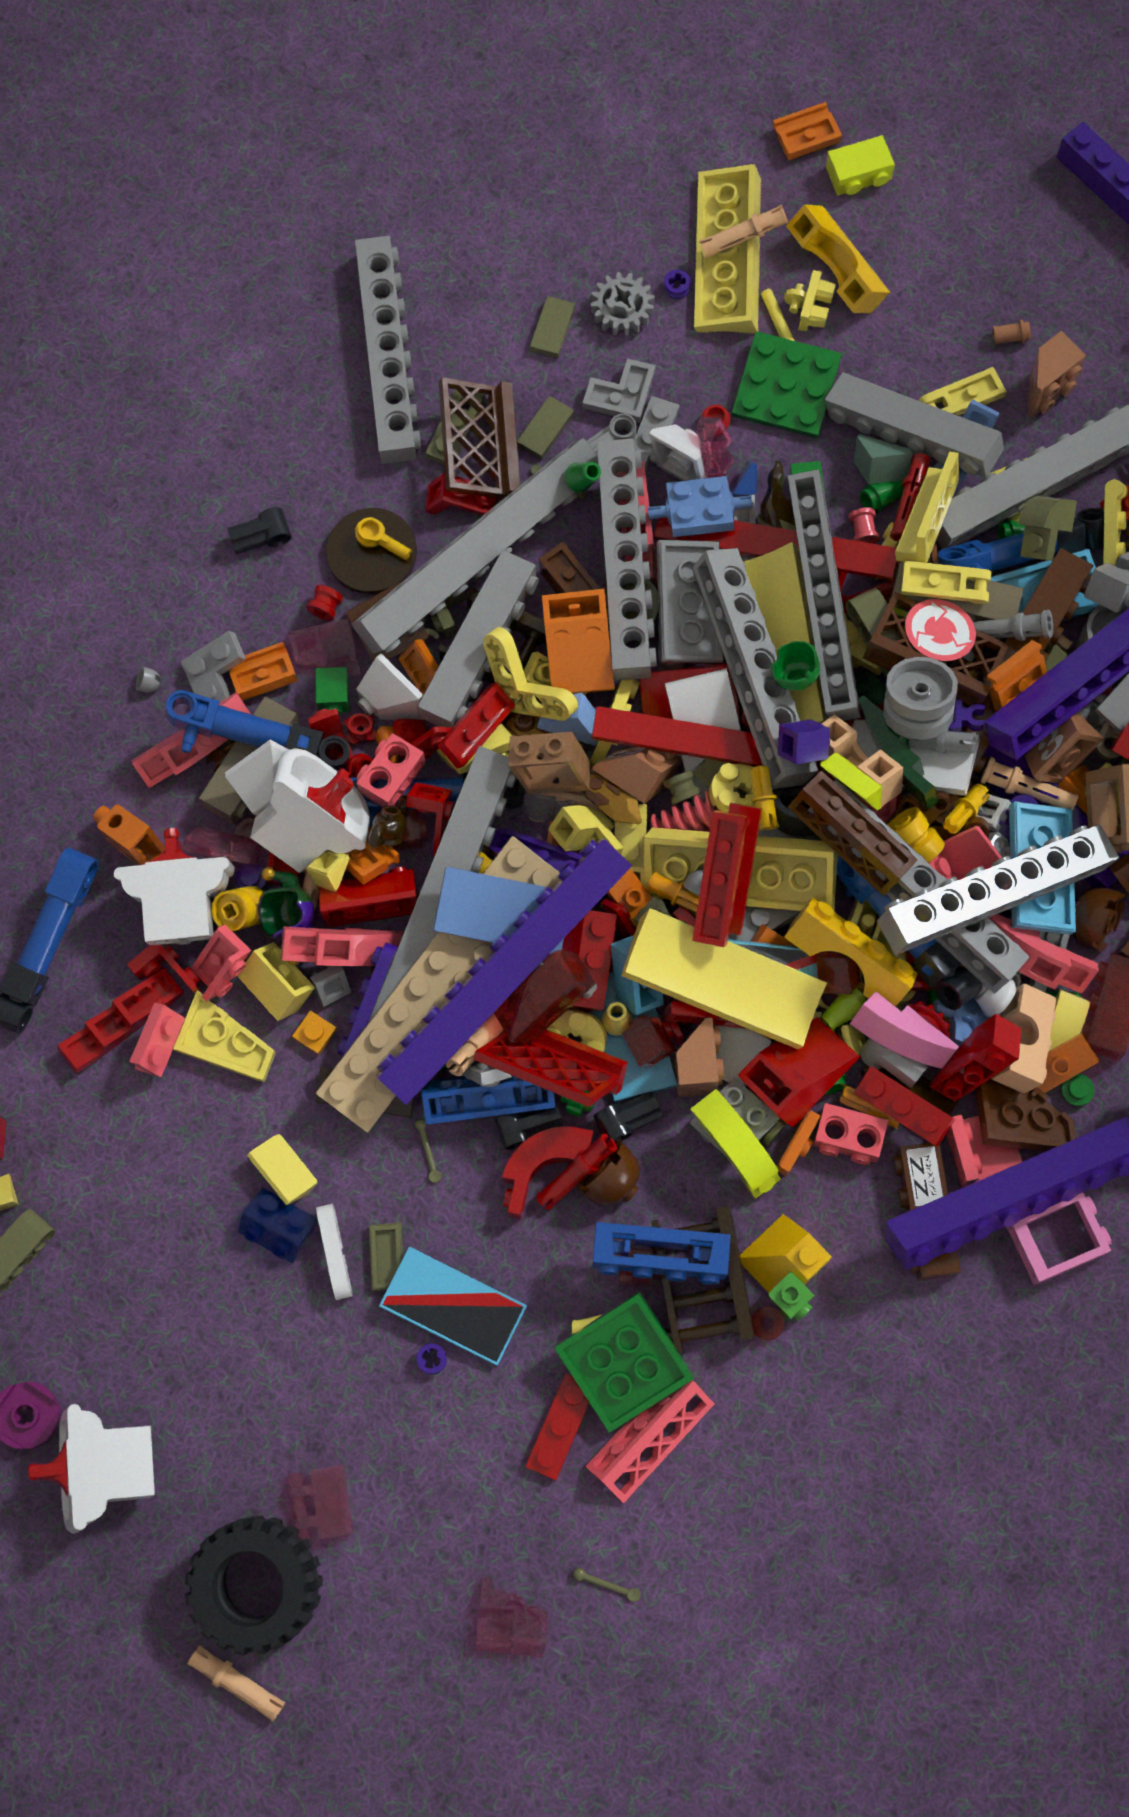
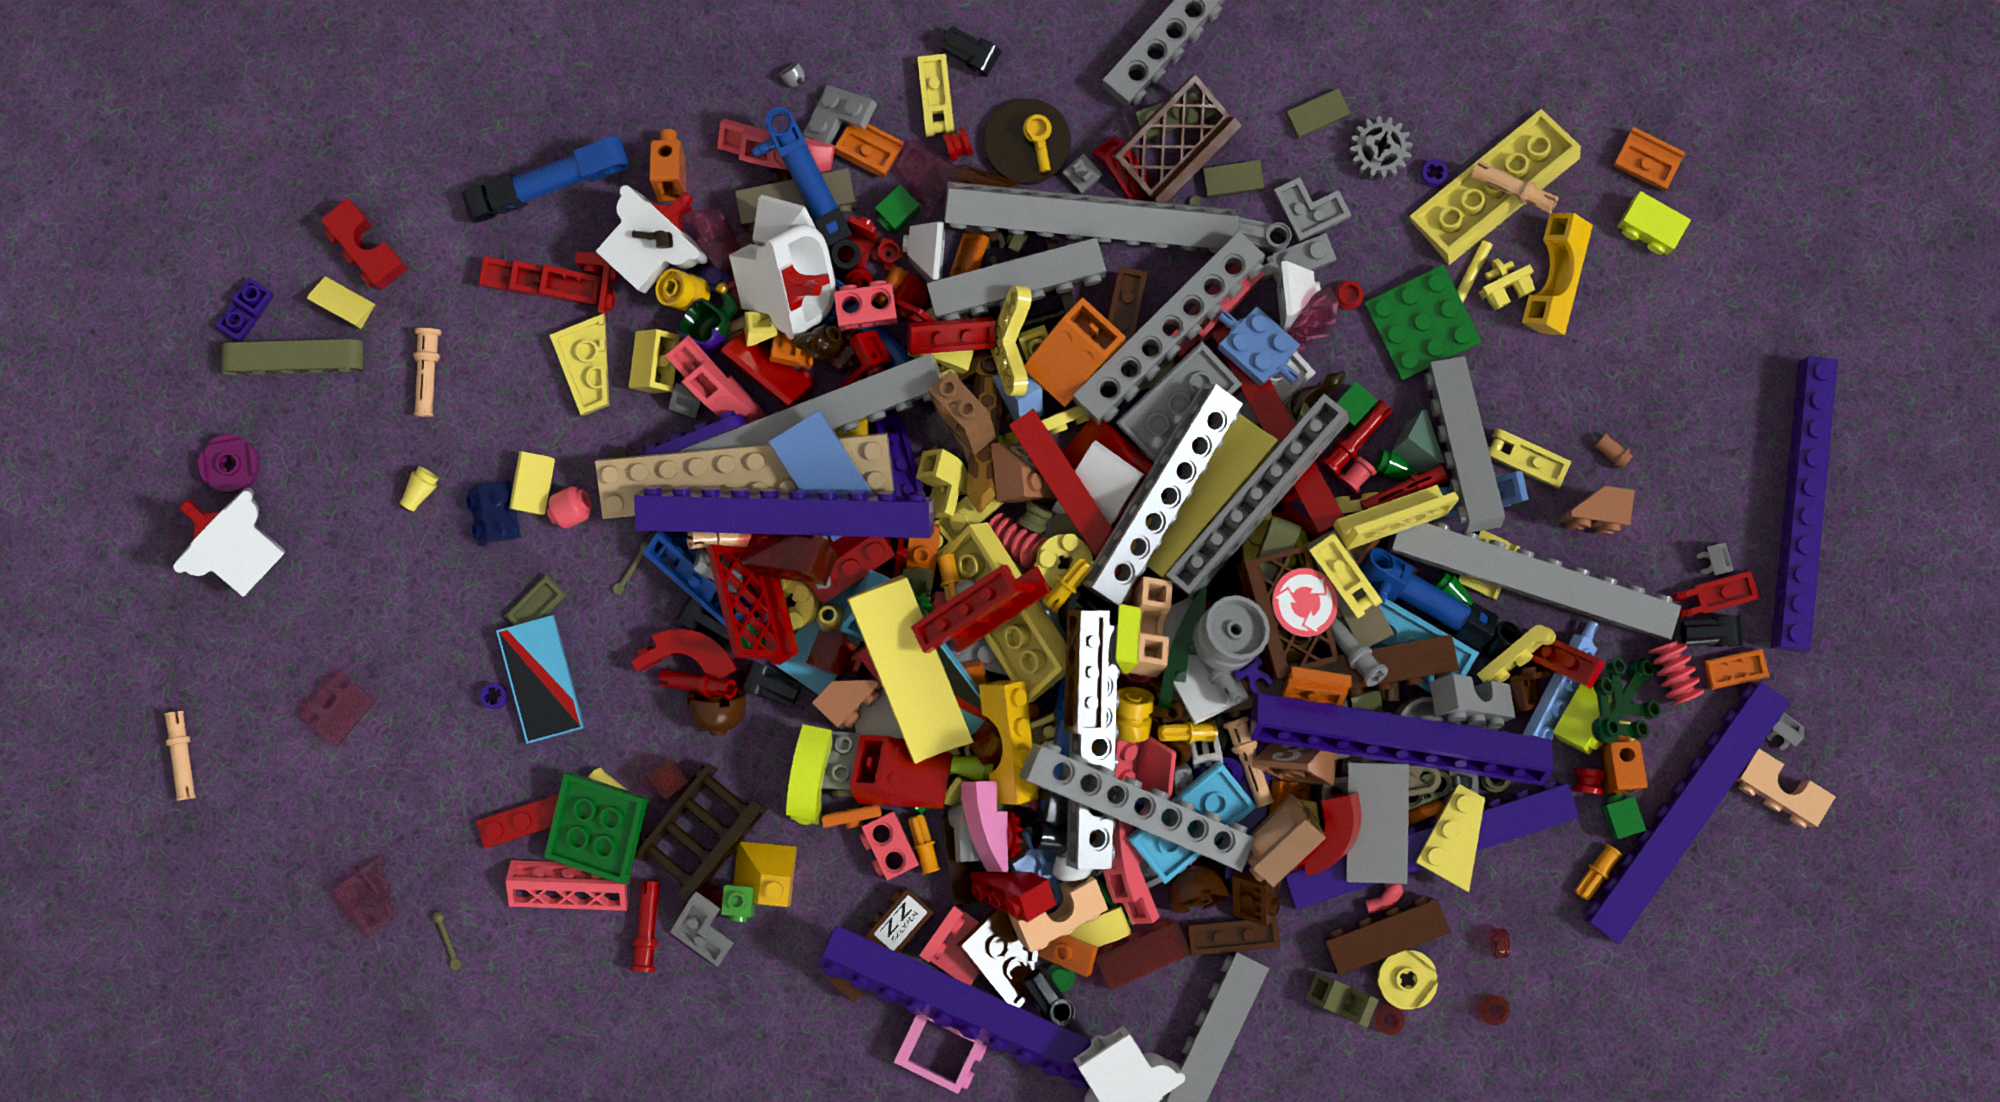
camera: 50 degrees right, 10 degrees up
(96, 1168) = (426, 358): none -> light nougat pin
(157, 1040) = (543, 319): coral bracket -> none
(186, 874) = (662, 238): none -> dark brown hand
(198, 1269) = (419, 487): none -> light yellow cone
(213, 1604) = (209, 712): black tyre -> none
(220, 962) = (633, 313): coral bracket -> none
(268, 586) = (935, 93): none -> light yellow plate
(314, 1032) = (645, 419): light orange plate -> none
(331, 1155) = (569, 507): none -> coral head
(332, 1246) = (503, 572): white beam -> none
(435, 532) = (1082, 174): none -> light grey tile
(582, 475) = (1204, 236): green cone -> none
(645, 1265) = (682, 810): blue brick -> none
(746, 481) = (1312, 361): blue slope -> none
(756, 1408) = (645, 940): none -> red pin
(788, 1357) = (695, 929): none -> light grey plate
(796, 666) = (1181, 524): green hair -> none
(803, 741) = (1125, 579): dark purple brick -> none
(837, 515) = (1347, 448): none -> red pin
(904, 1106) = (936, 868): red plate -> none
(1042, 521) = (1461, 603): olive brick -> none
(1089, 1109) = (1047, 996): none -> black piece

